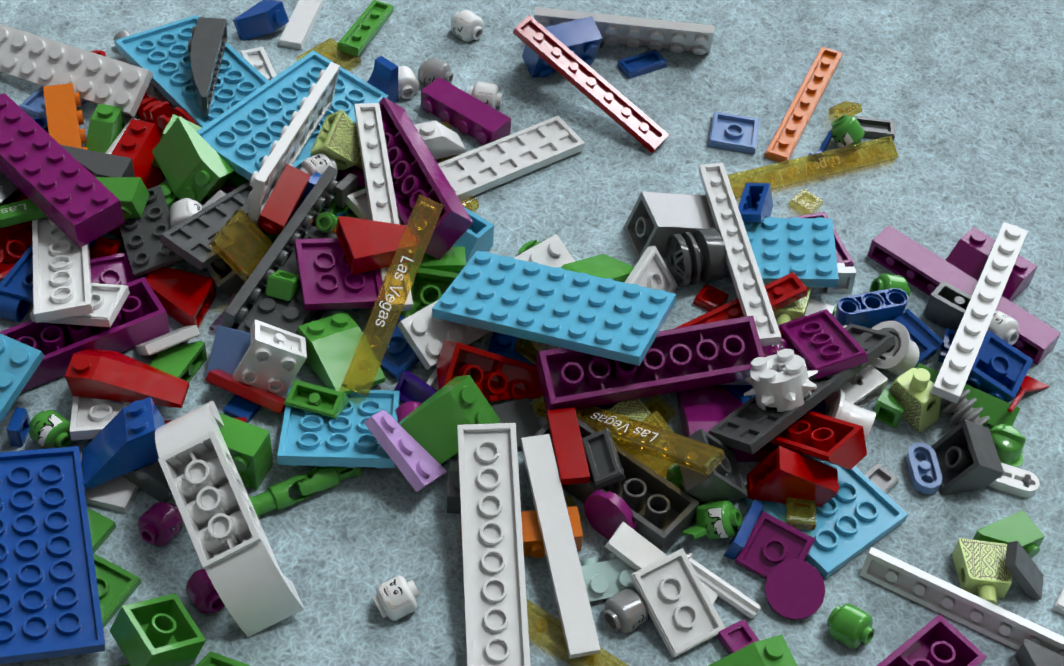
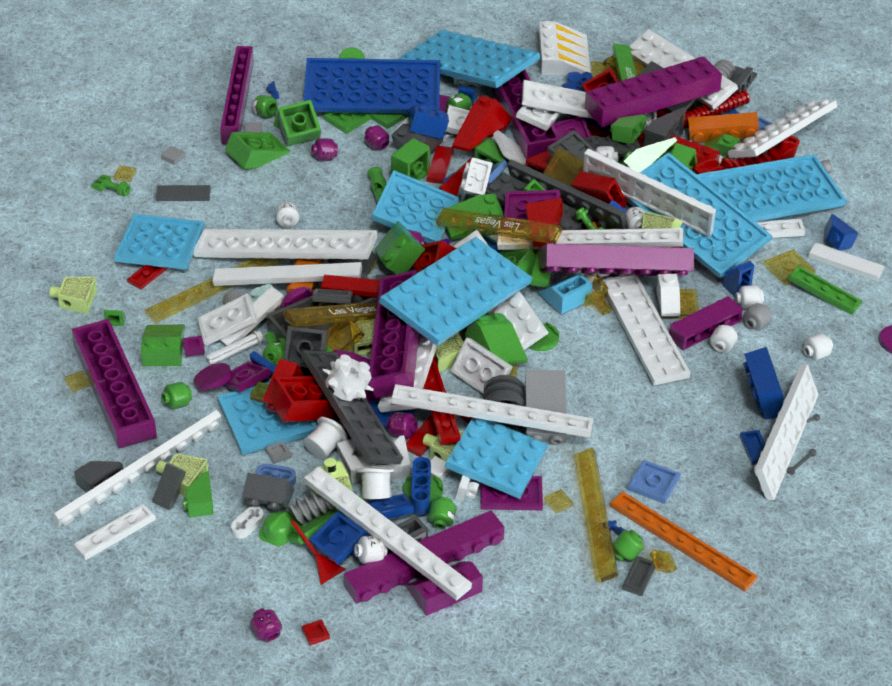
camera: 110 degrees right, 5 degrees down
(206, 56) = (766, 183): dark grey slope -> none
(223, 521) = (352, 125): white slope -> none
(316, 399) = (438, 199): bright green slope -> none
(405, 451) = (380, 218): lavender wing -> none
(590, 84) = (706, 381): plate -> none
(756, 202) = (551, 452): blue arch -> none
(823, 343) = (386, 429): magenta tile -> none

